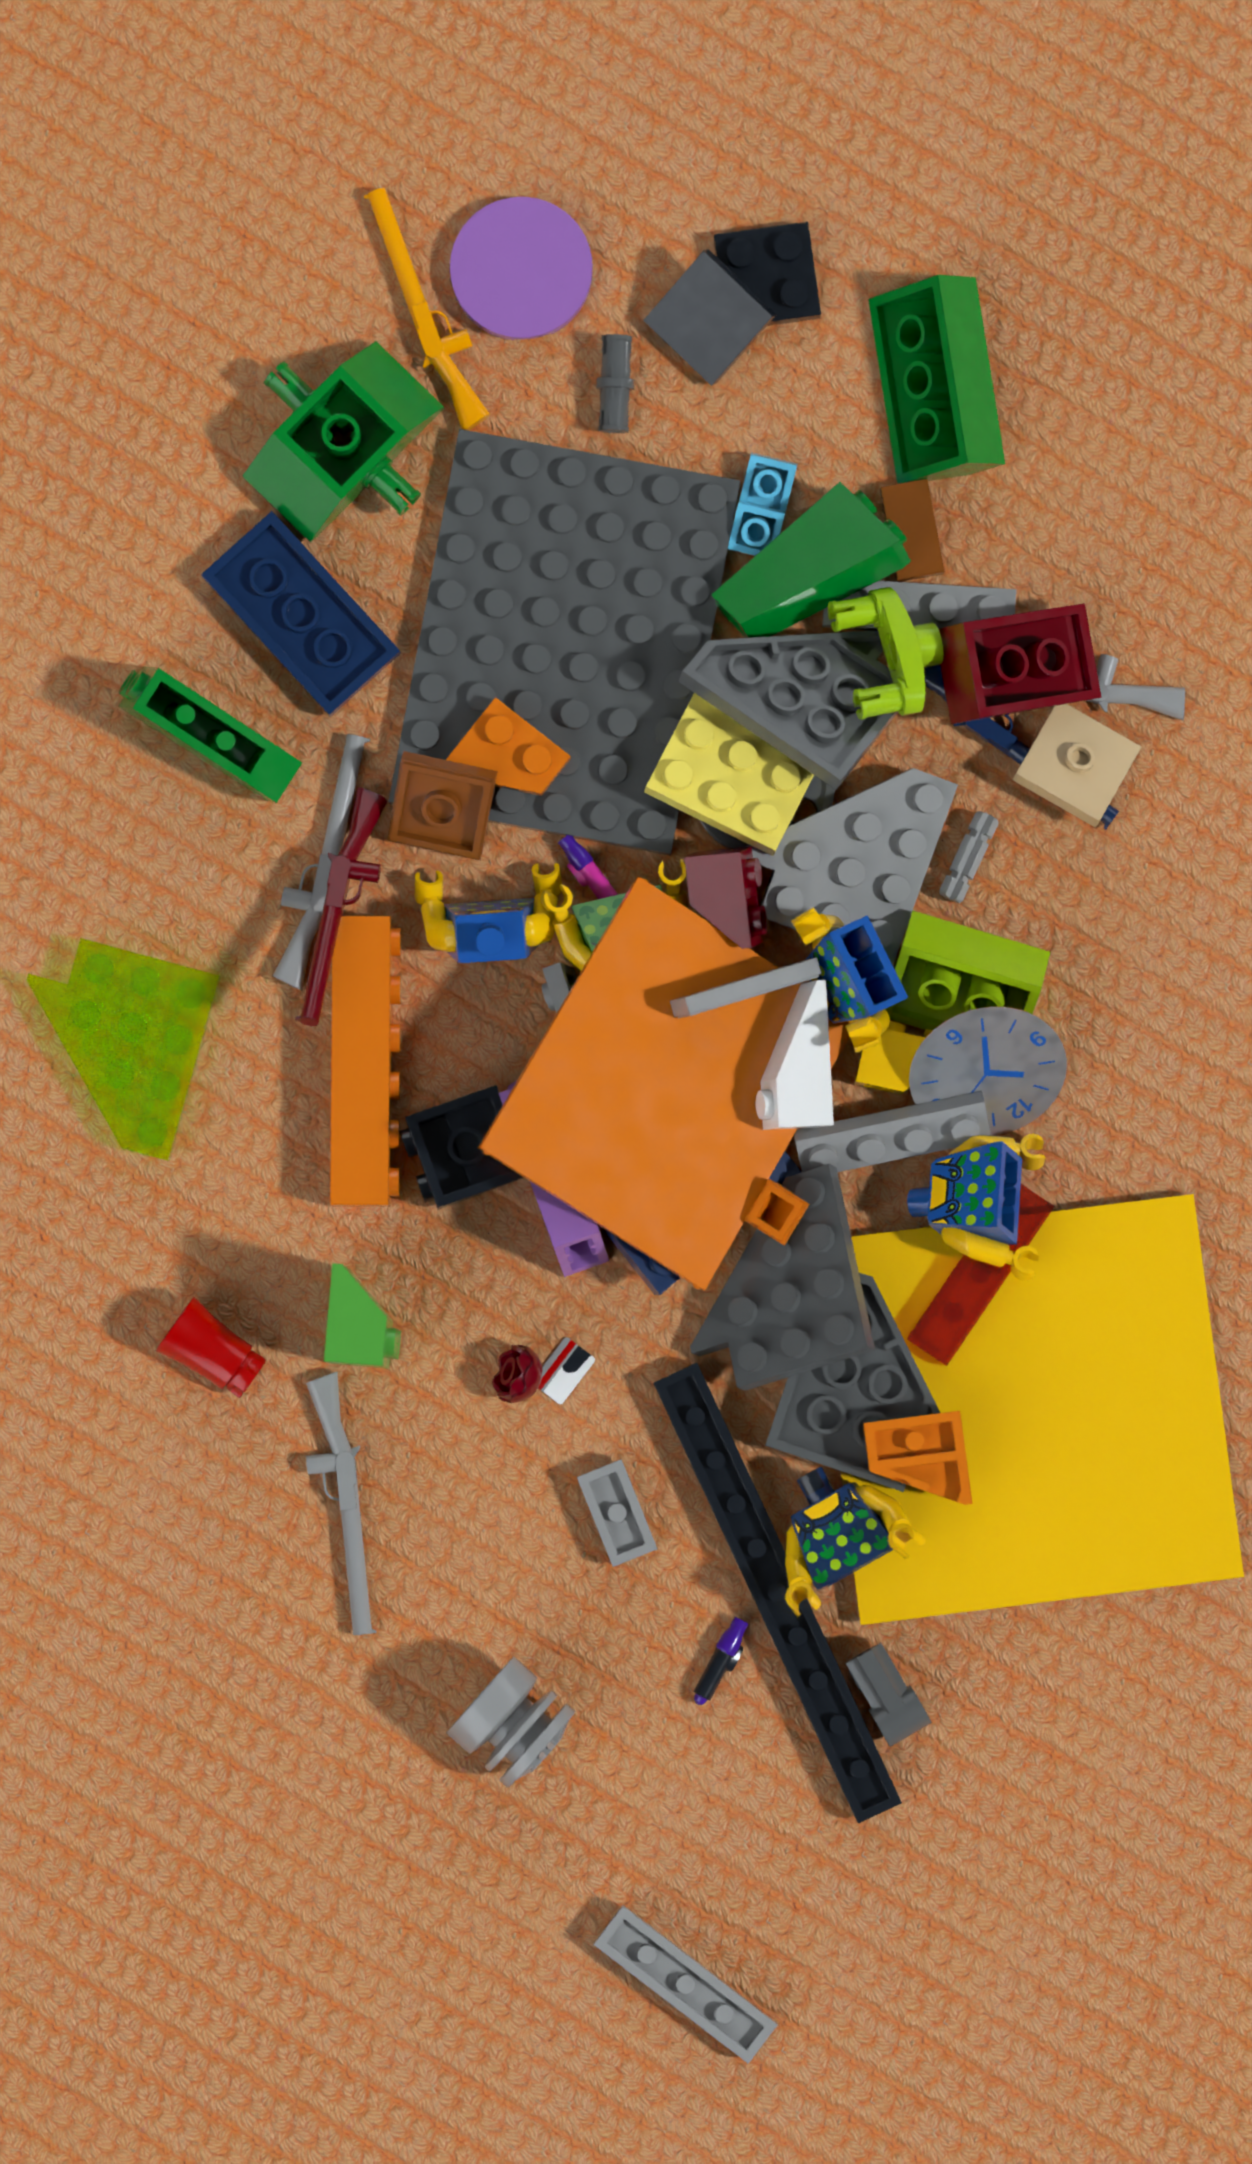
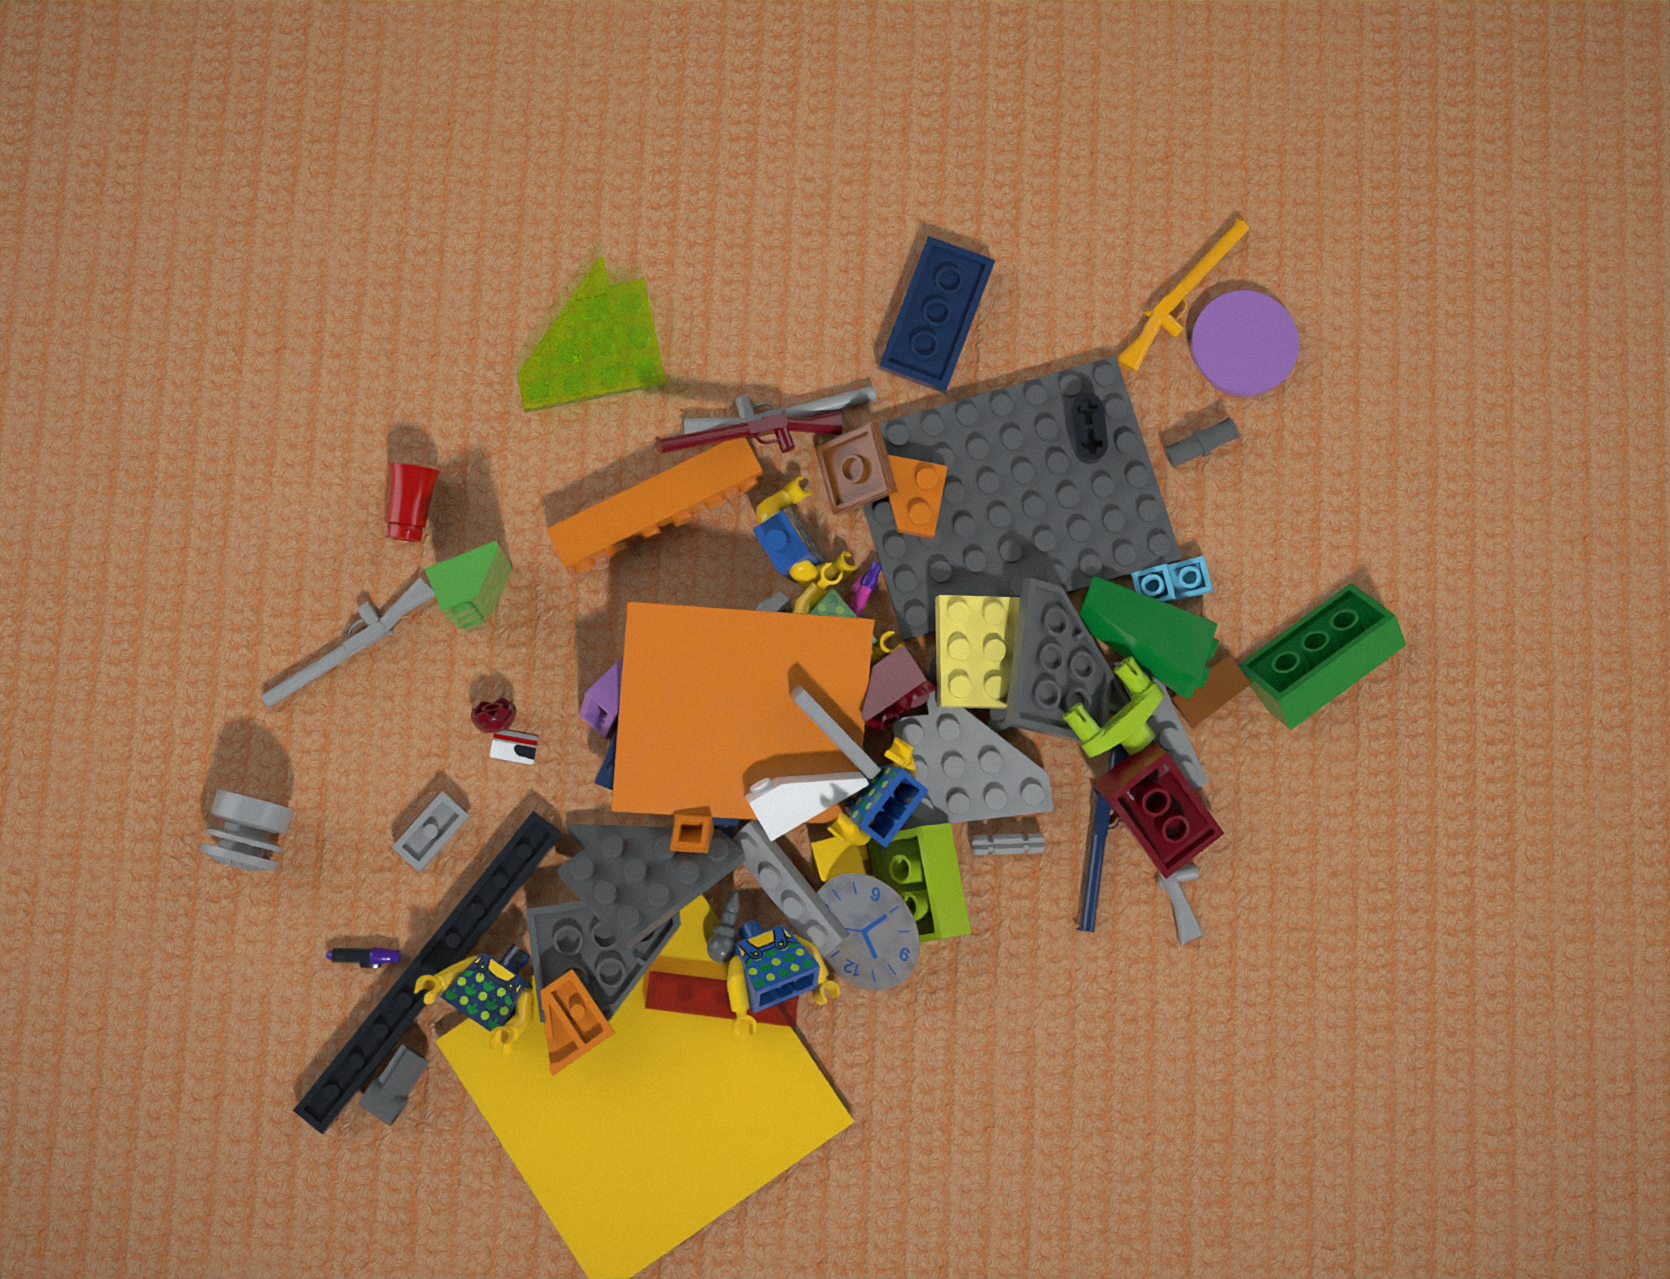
camera: 55 degrees right, 5 degrees down
(208, 732) = (824, 291): green slope -> none
(312, 477) = (1100, 290): green slope -> none
(448, 1148) = (626, 581): black plate -> none
(538, 498) = (1080, 429): none -> black beam
(685, 1984) = (123, 1046): light grey plate -> none
(709, 317) = (1281, 481): black tile -> none
(776, 267) = (1328, 507): black plate -> none
(919, 1243) = (722, 945): none -> dark grey bar
(1077, 763) = (1111, 885): tan plate -> none

